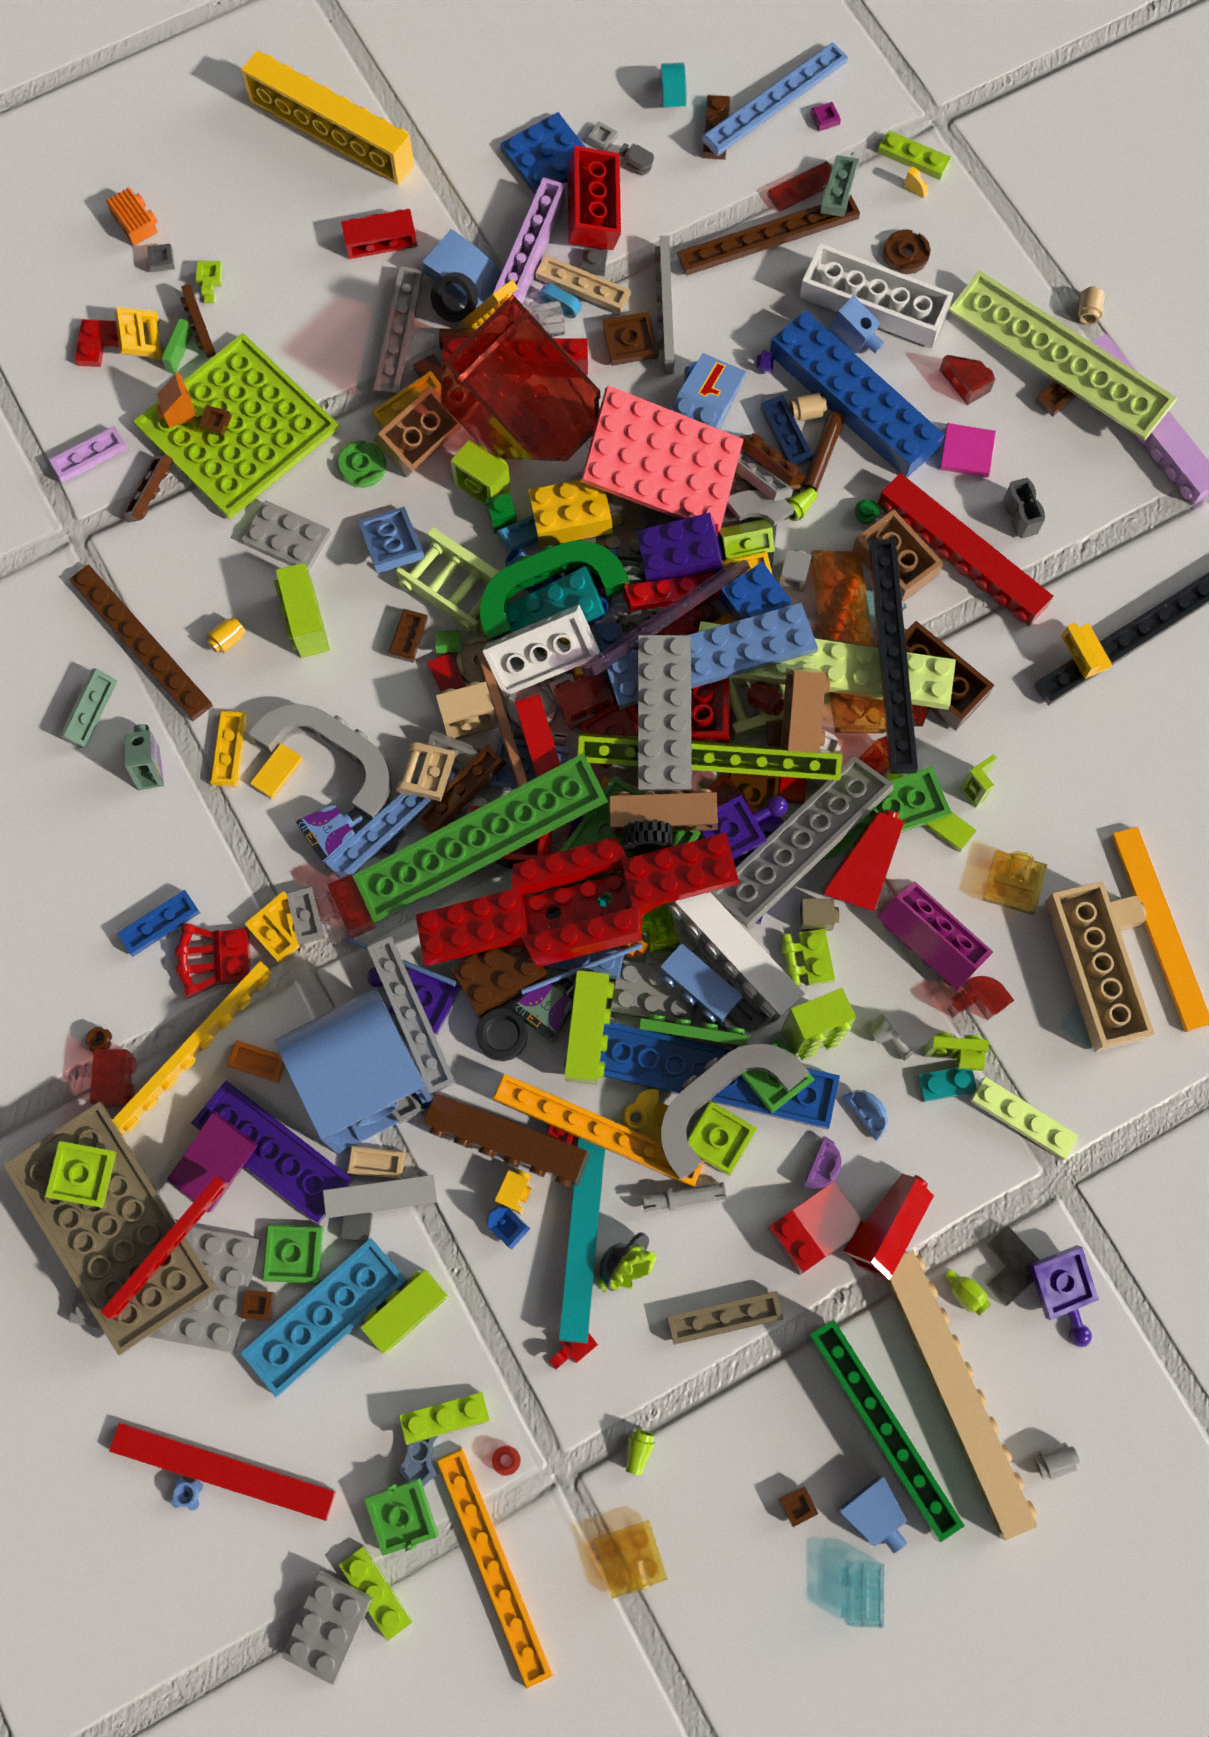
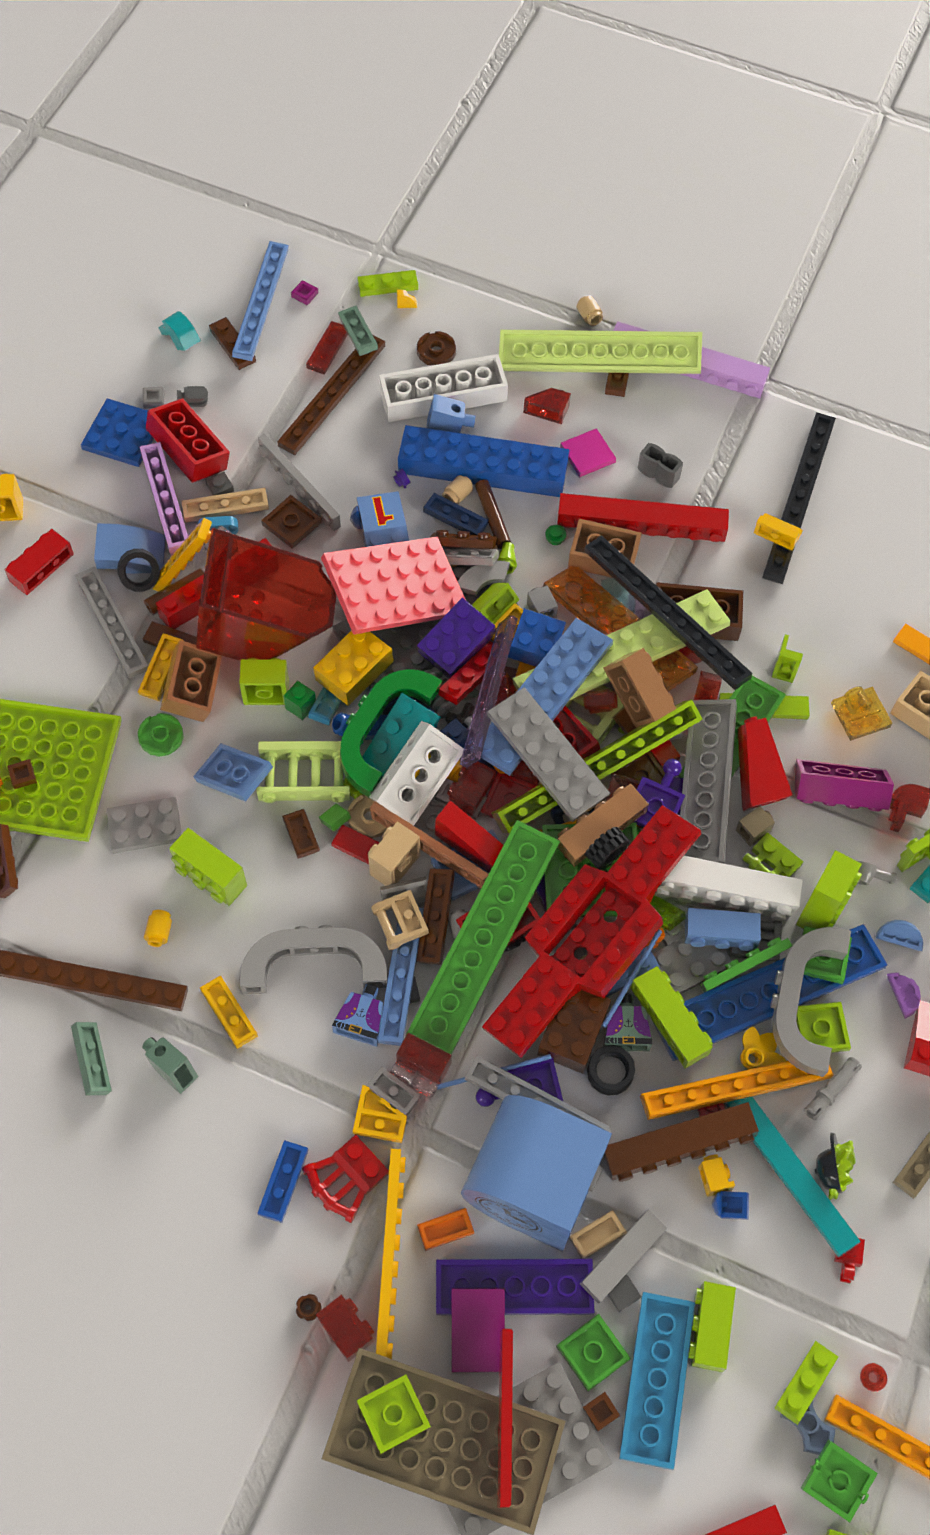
camera: 40 degrees left, 10 degrees down
(276, 771) = (280, 1002): yellow tile -> none

